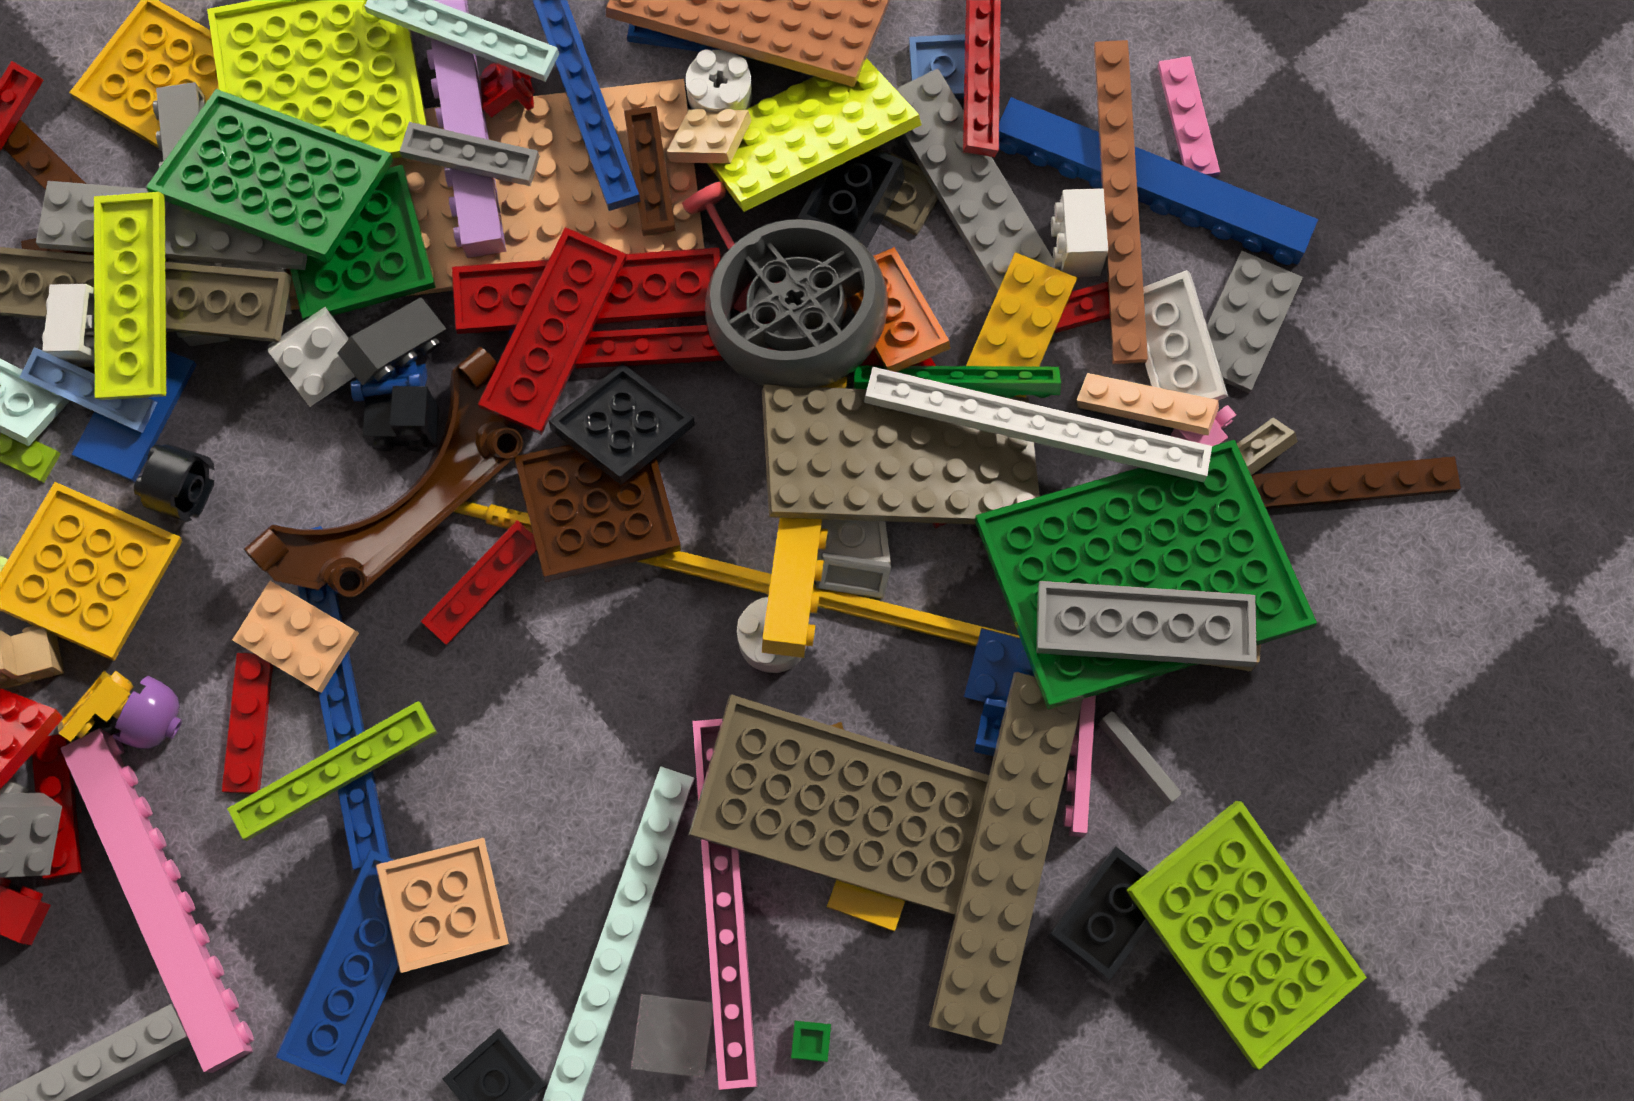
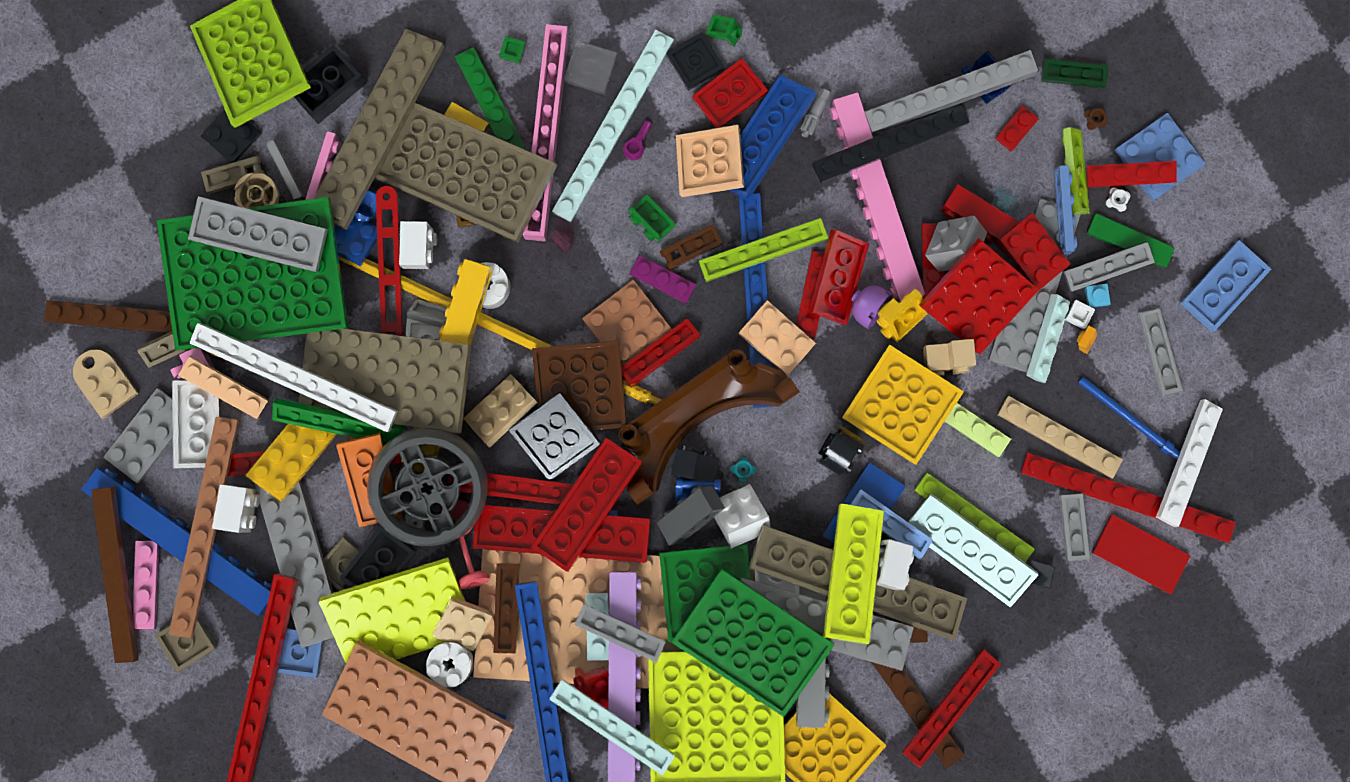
camera: 170 degrees left, 10 degrees up
(144, 984) = (890, 143): none -> black plate
(206, 752) = (838, 277): none -> red plate
(279, 1021) = (815, 112): none -> light grey piece
(319, 430) = (743, 463): none -> teal plate
(427, 1034) = (729, 94): none -> red plate
(455, 761) = (691, 247): none -> reddish brown plate
(495, 701) = (662, 279): none -> magenta plate
(515, 199) = (597, 646): none -> light aqua plate
(527, 794) = (651, 219): none -> green bracket
(541, 623) = (627, 318): none -> nougat plate
(575, 909) = (634, 148): none -> magenta plate
(667, 729) = (561, 241): none -> clear pink plate
(714, 449) = (500, 410): none -> tan plate
(829, 942) = (488, 98): none -> green plate
(897, 668) = (416, 245): none -> white brick
(930, 616) = (389, 279): none -> red piece
(1106, 28) = (186, 651): none -> dark tan plate
(1174, 705) = (256, 191): none -> tan cylinder
(1225, 739) = (228, 175): none -> dark tan plate
(1235, 118) = (114, 574): none -> reddish brown tile
(1261, 796) = (228, 140): none -> black plate
(1335, 384) = (104, 383): none -> tan plate

